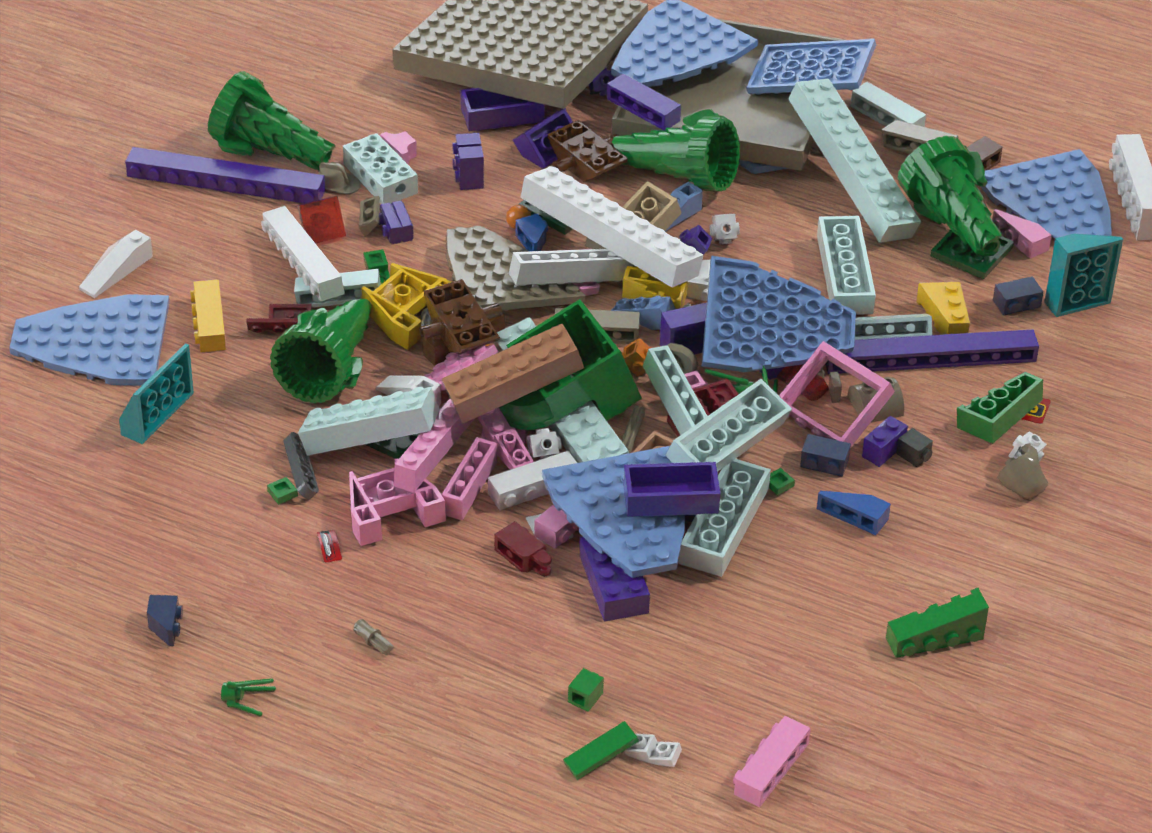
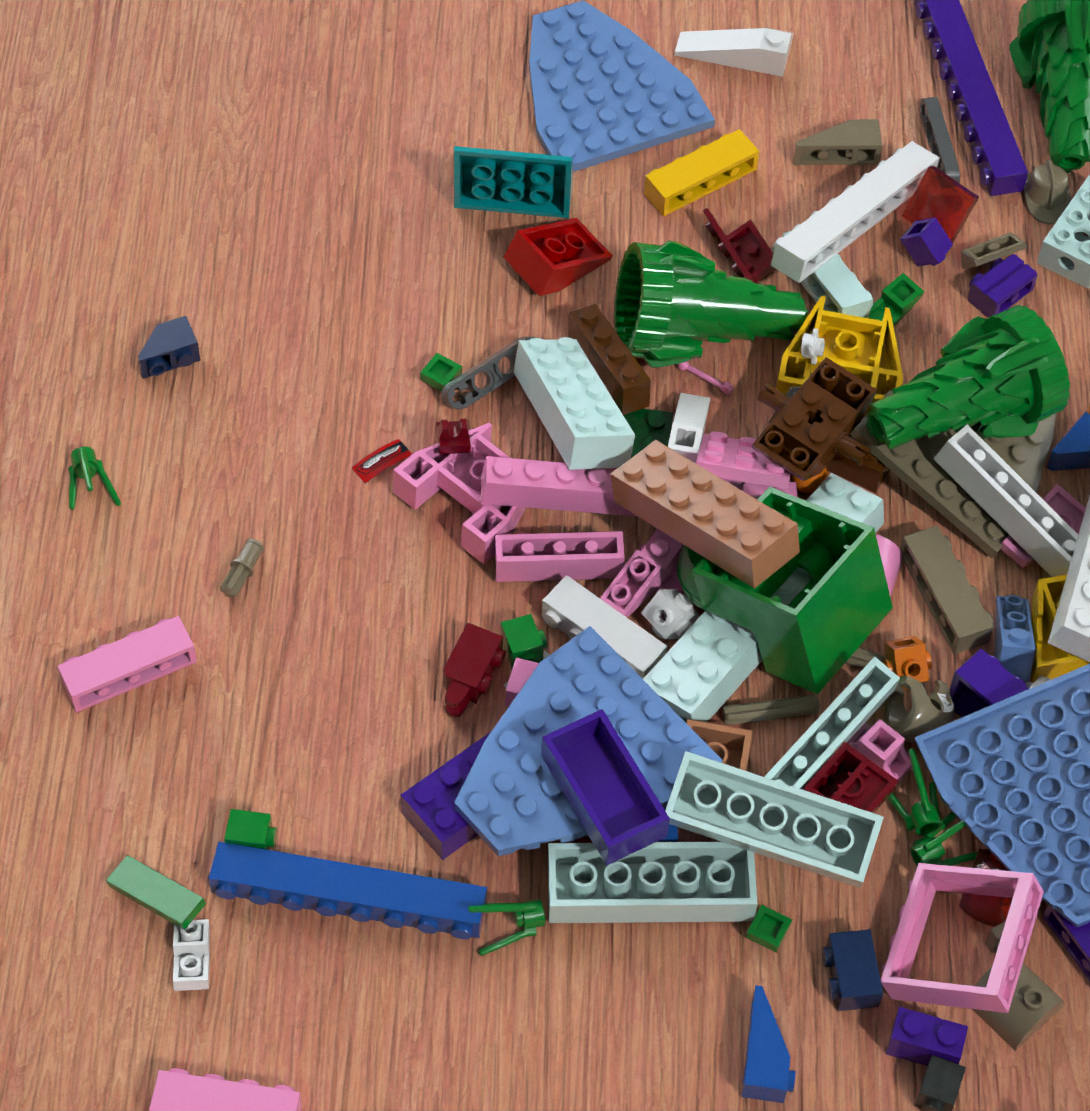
camera: 65 degrees right, 15 degrees up
(227, 405) = (555, 255): none -> red slope
(238, 242) = (842, 144): none -> dark tan slope
(242, 202) = (938, 136): none -> dark grey beam
(302, 402) = (610, 359): none -> reddish brown brick
(342, 238) = (926, 242): none -> dark purple brick
(353, 487) = (453, 437): none -> dark red tile
(384, 367) = (725, 387): none -> bright pink hinge
(400, 302) = (812, 346): none -> white plate
(415, 716) = (127, 663): none -> bright pink brick
(488, 221) = (990, 373): none -> green cone
(521, 513) = (523, 639): none -> green brick
(650, 658) = (347, 890): none -> blue brick
(712, 584) = (526, 914): none -> green plant

